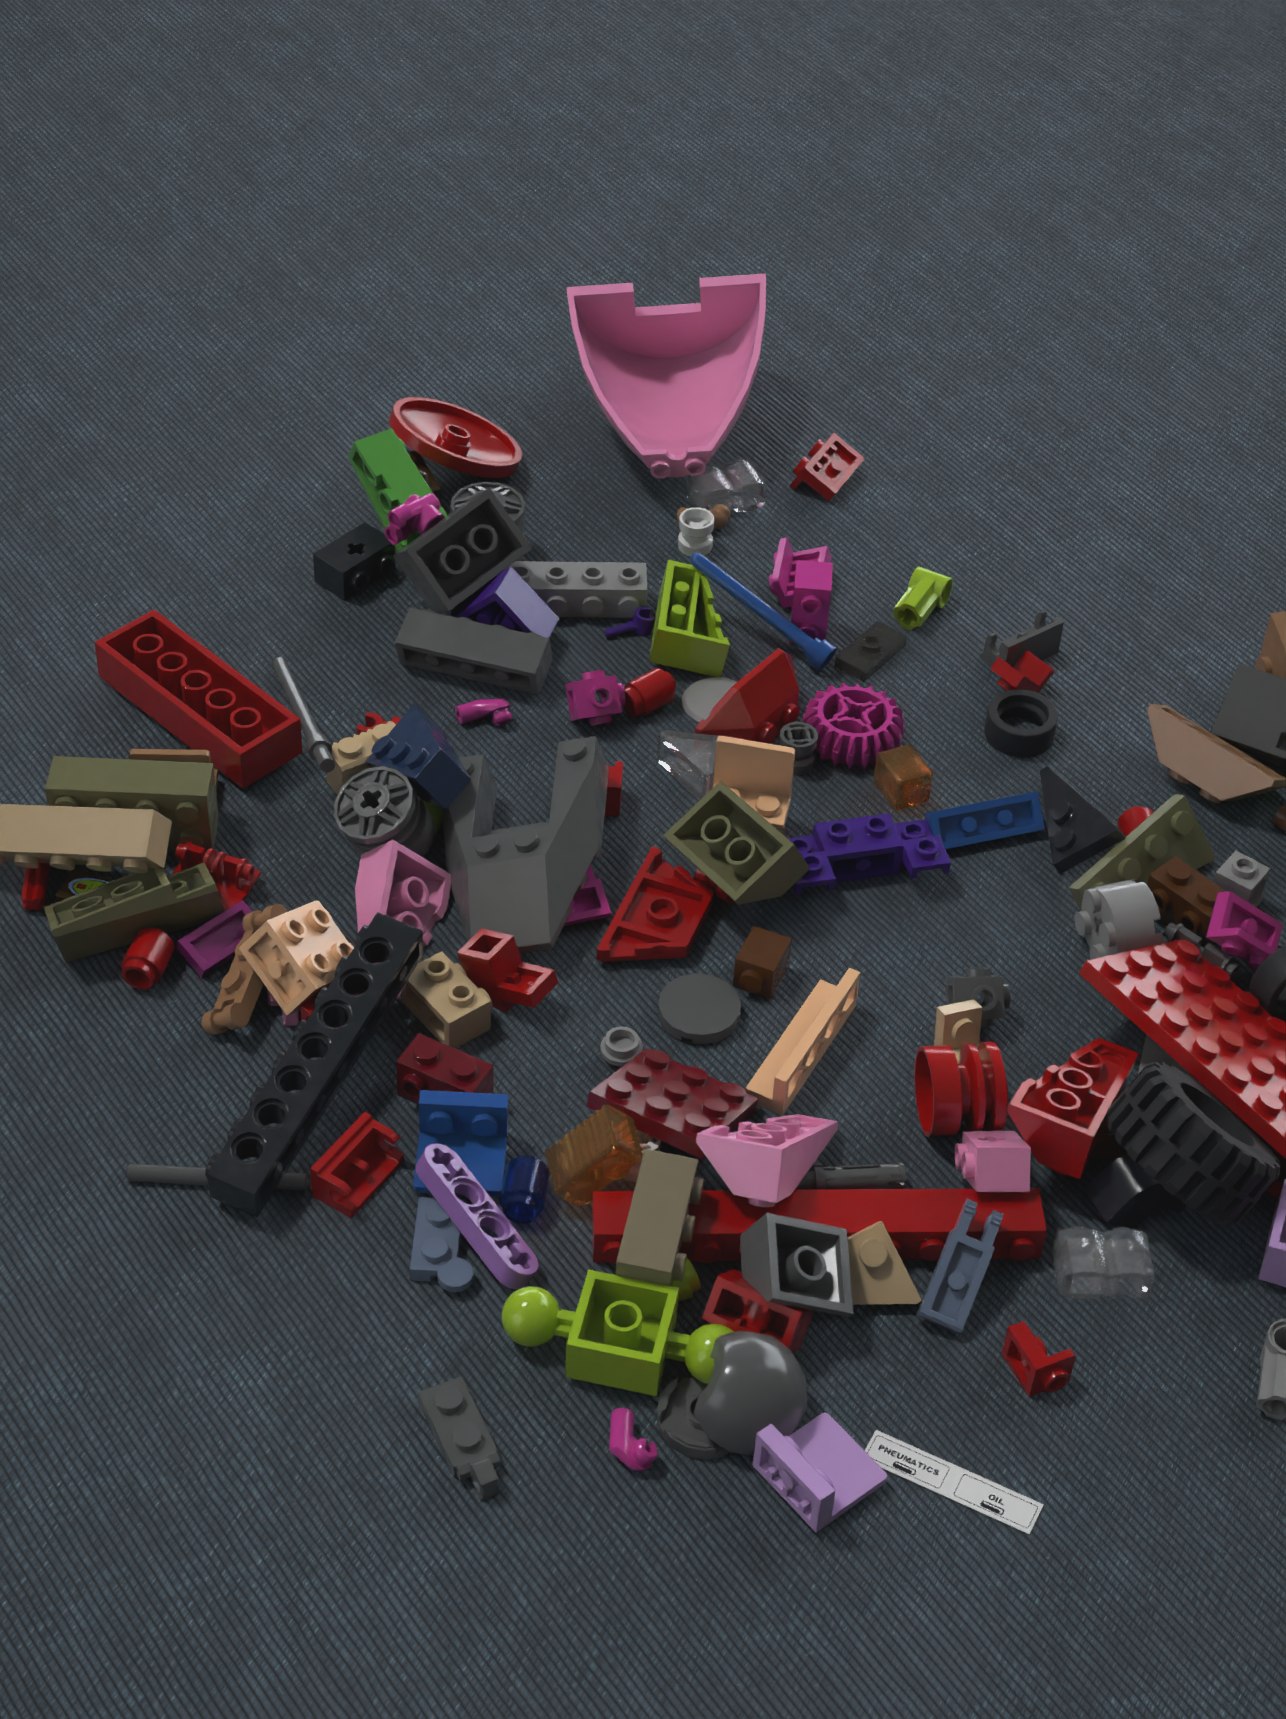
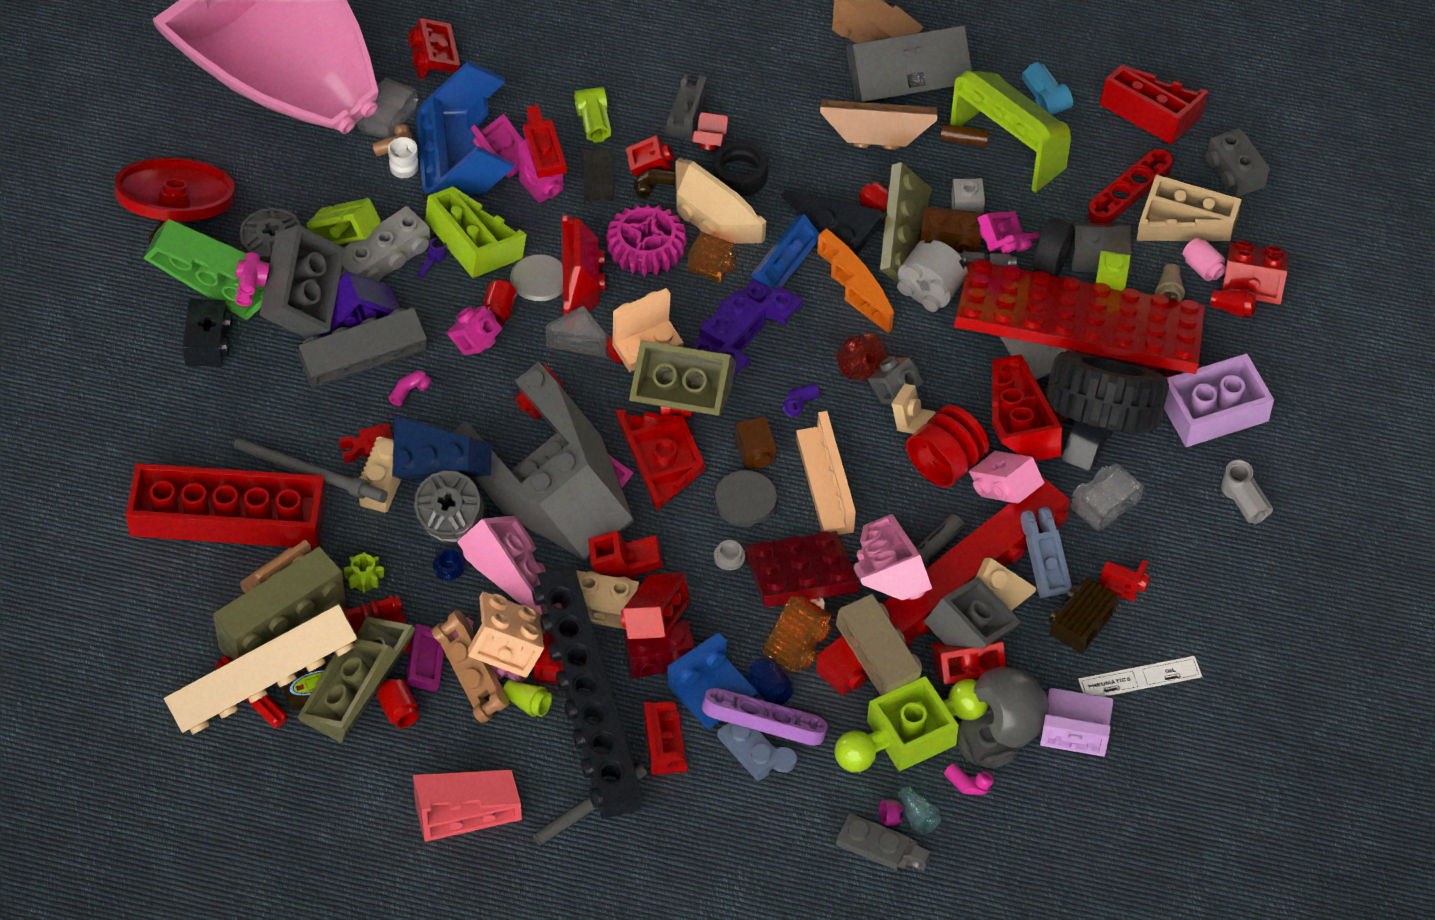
camera: 40 degrees left, 10 degrees up
(91, 1080) = (465, 802): none -> coral wedge
(253, 830) = (364, 572): none -> lime gear
(270, 1036) = (528, 697): none -> lime cone
(339, 876) = (448, 565): none -> clear blue plate
(474, 1028) = (656, 606): none -> red brick
(505, 1409) = (890, 812): none -> magenta hinge
(536, 1432) = (919, 811): none -> clear light blue cone
(571, 542) = (345, 221): none -> lime brick
(794, 512) = (445, 135): none -> blue windscreen
(804, 740) = (629, 279): dark grey wheel -> none
(813, 568) = (543, 144): none -> red hinge
(817, 651) = (571, 199): blue piece -> none
(854, 953) = (796, 398): none -> dark purple arm
(918, 680) = (650, 178): none -> dark brown arm
(941, 659) = (649, 154): none -> red bracket
(945, 1363) = (1083, 614): none -> dark brown brick
(951, 739) = (715, 206): none -> tan wedge
(973, 947) = (860, 356): none -> clear red brick
(1034, 885) = (860, 285): none -> orange slope

